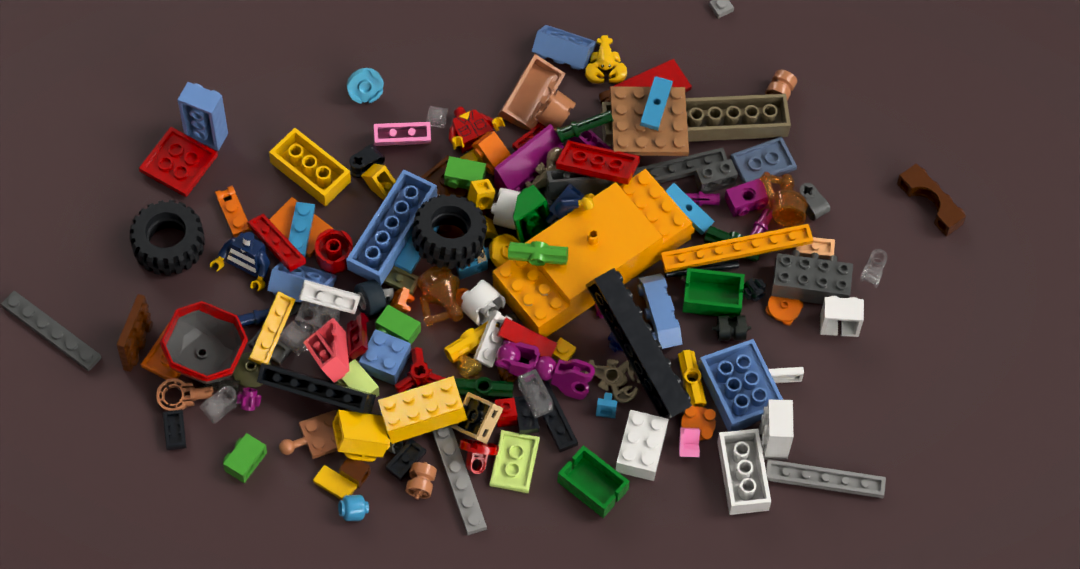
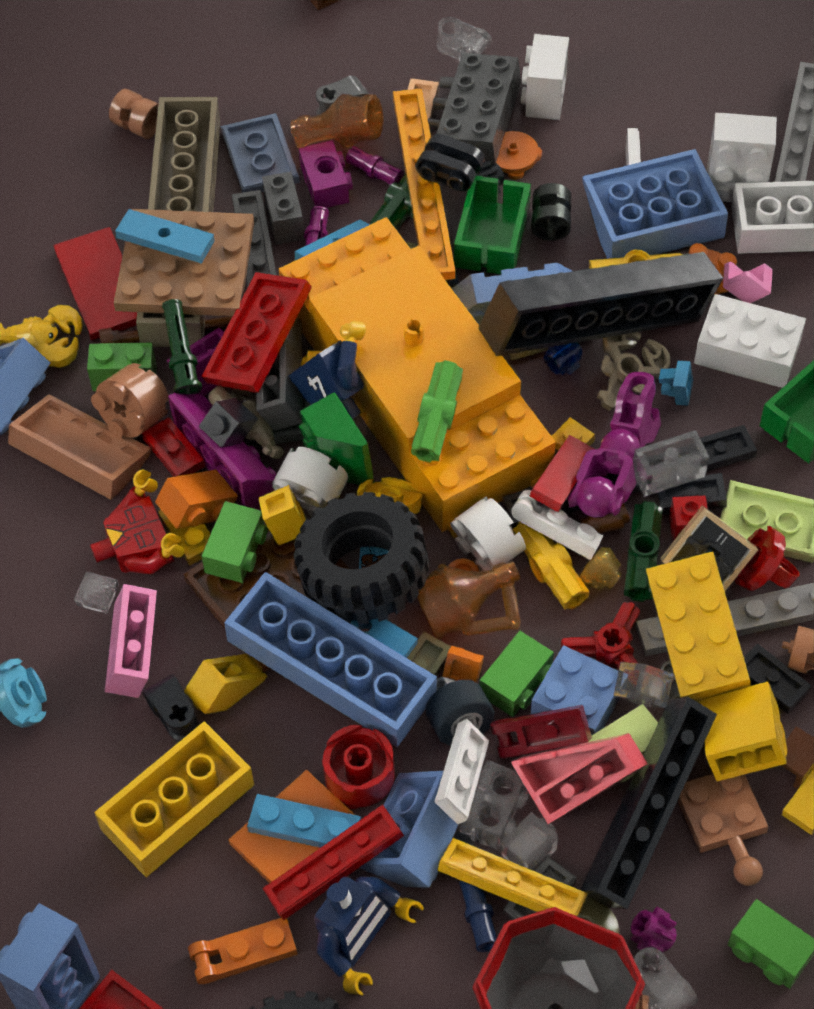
camera: 80 degrees left, 5 degrees down
(387, 383) = (643, 684): none -> clear brick
(534, 156) = (228, 422): none -> black brick
(585, 102) = (109, 358): none -> bright green brick
(735, 262) = (450, 162): none -> black brick

